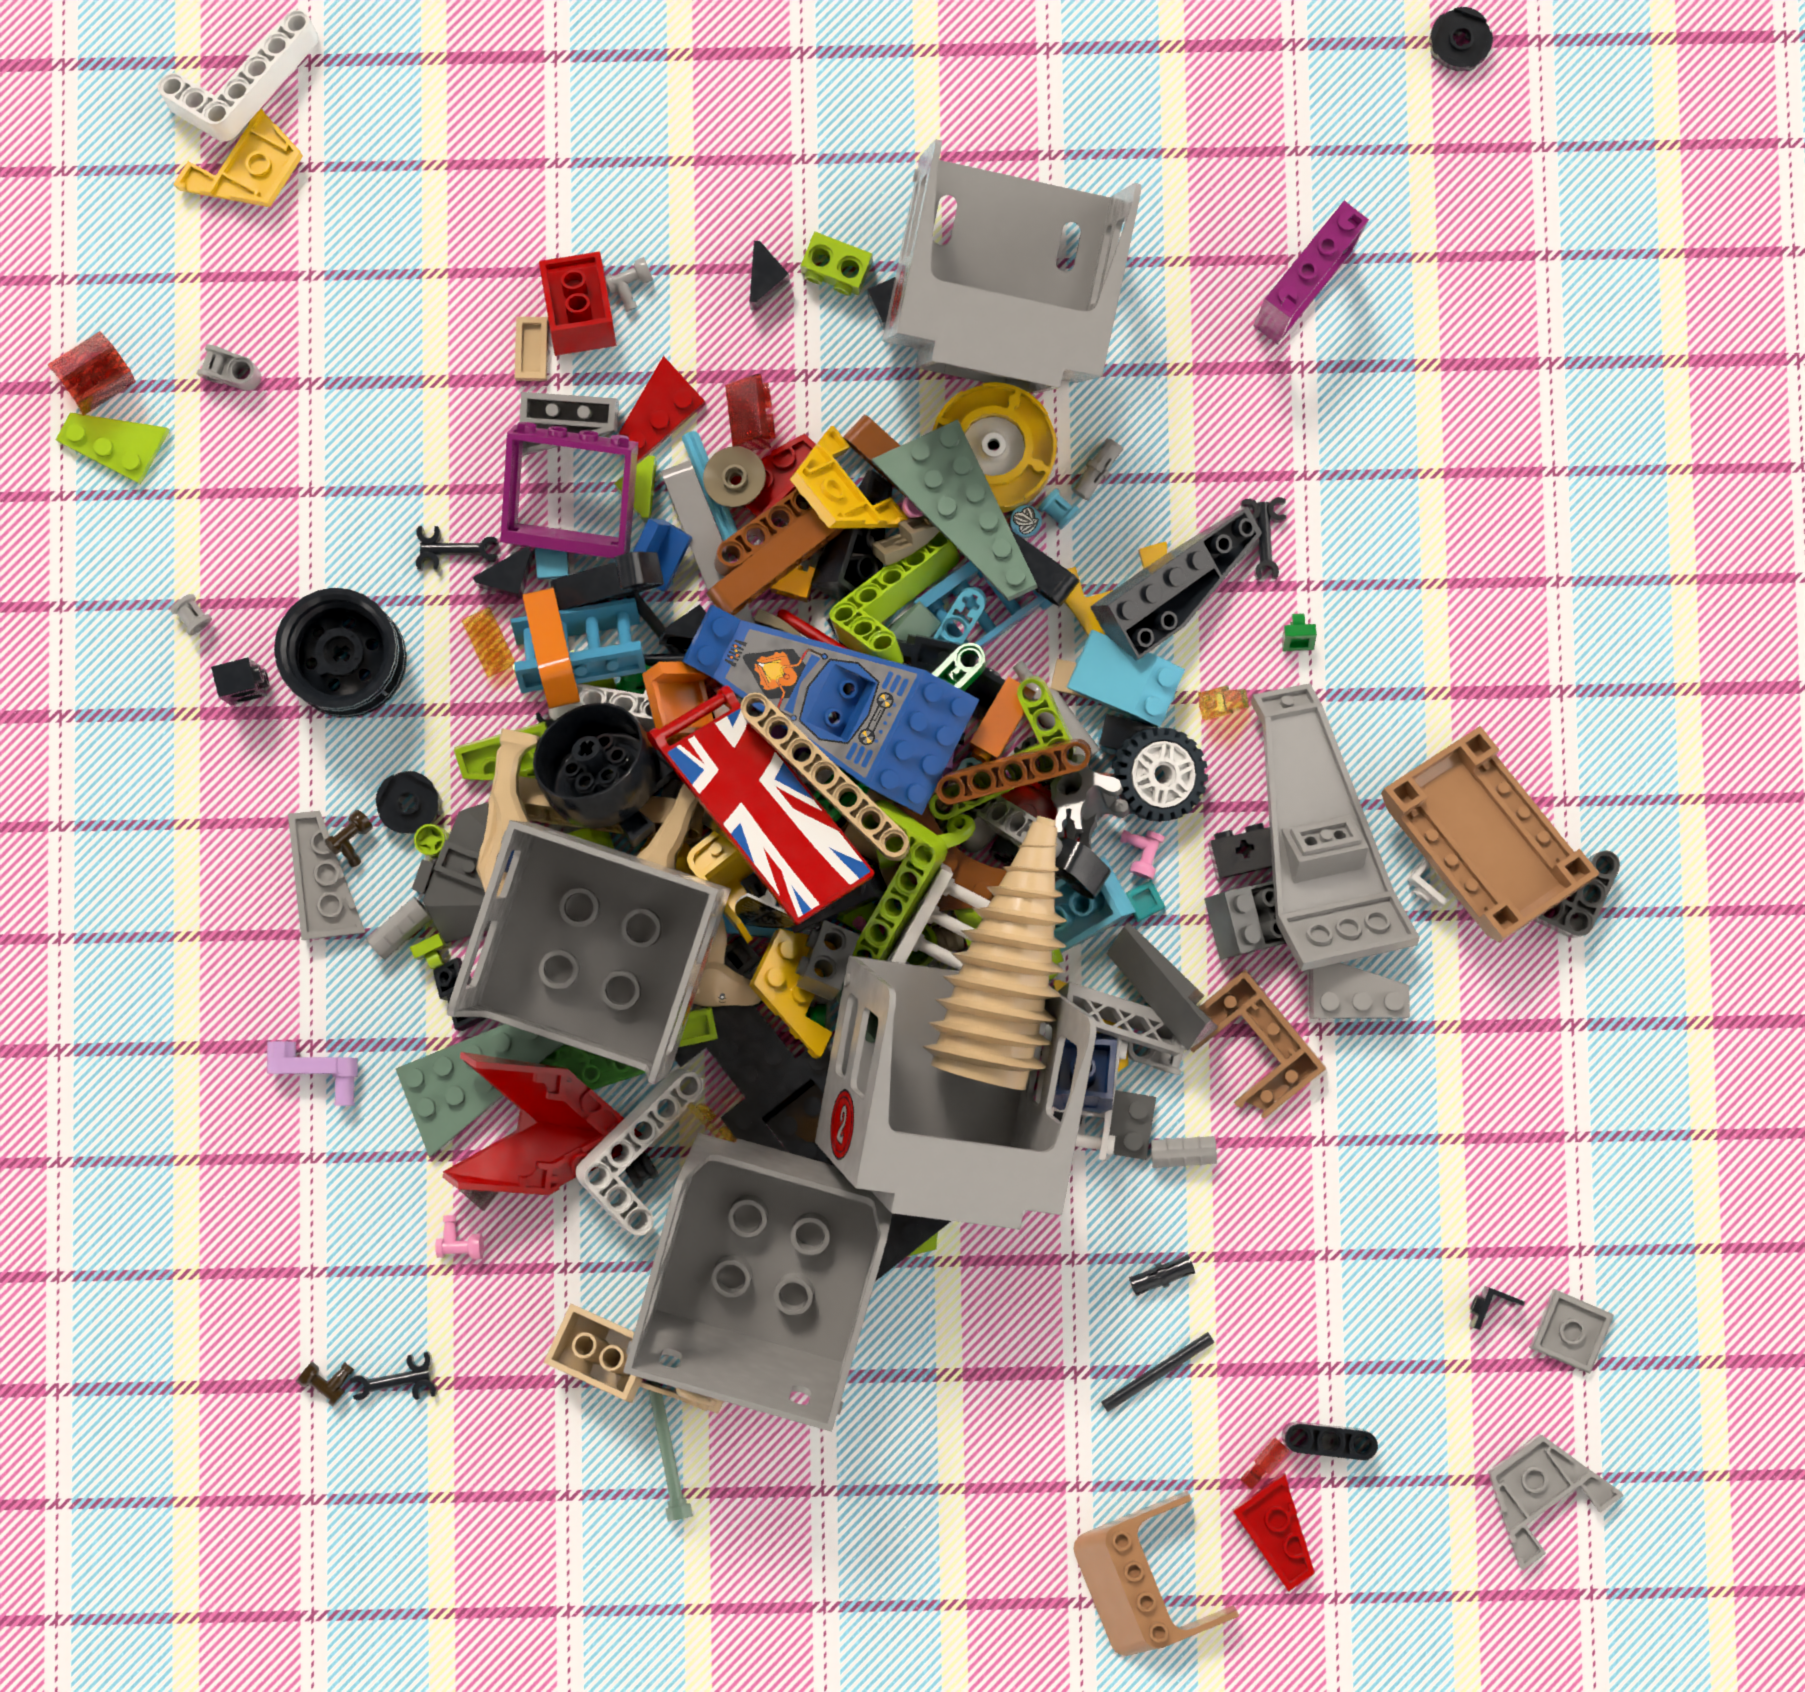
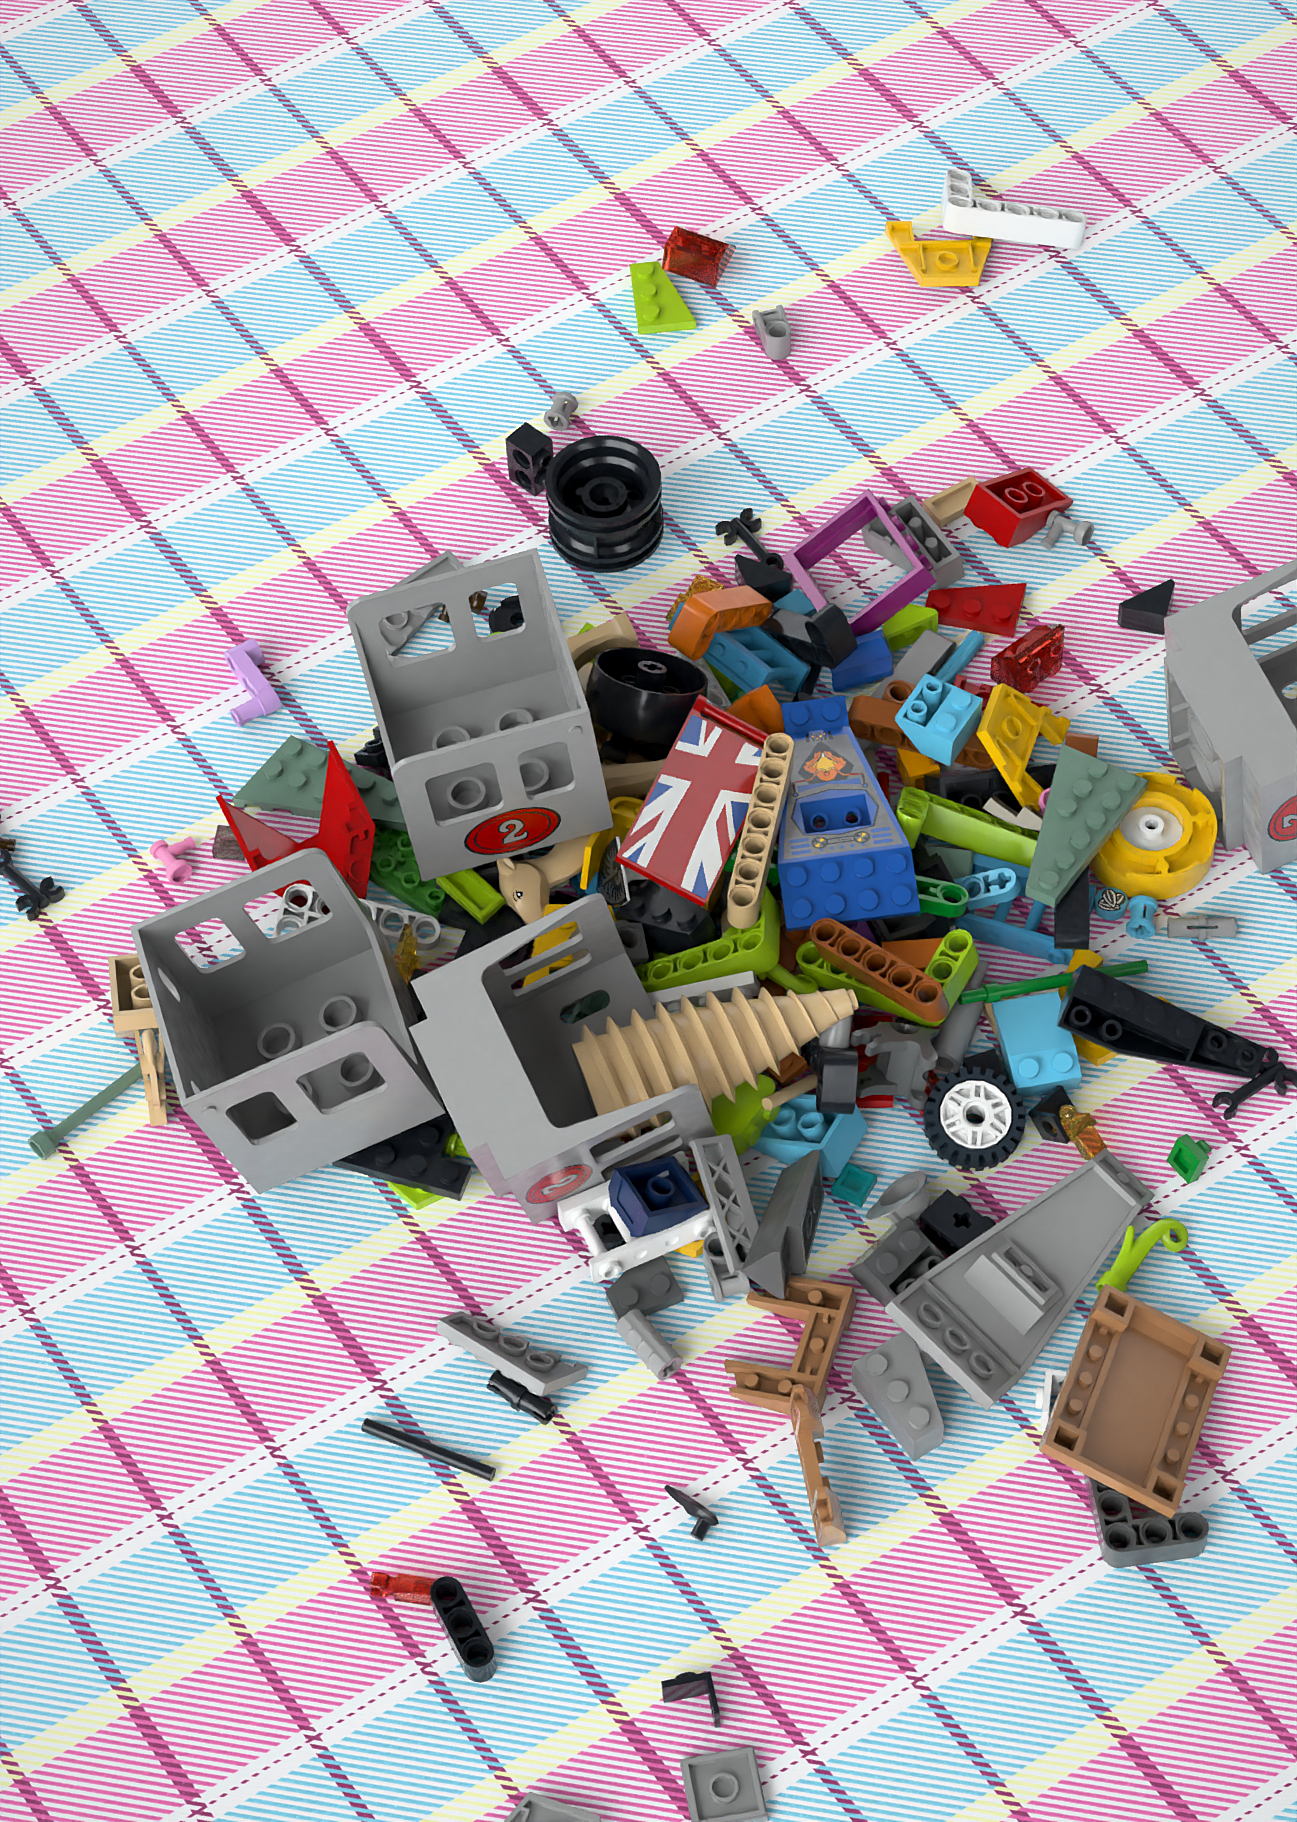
camera: 60 degrees right, 30 degrees down
(724, 467) = (968, 671): dark tan dish -> none
(793, 546) = (939, 718): none -> medium azure slope
(1060, 680) = (994, 992): none -> green bar
(1126, 1588) = (200, 1538): medium nougat windscreen -> none
(1139, 1257) = (510, 1354): none -> light grey wing
(1149, 845) = (906, 1156): bright pink piece -> none
(1188, 710) = (1046, 1115): none -> black bracket
(1193, 882) = (903, 1199): none -> light grey piece
(1275, 1529) = (343, 1638): red wing -> none
(1342, 1206) = (704, 1517): none -> black bar
(1351, 734) = (1135, 1251): none -> lime plant
(1362, 1095) = (822, 1500): none -> medium nougat wedge

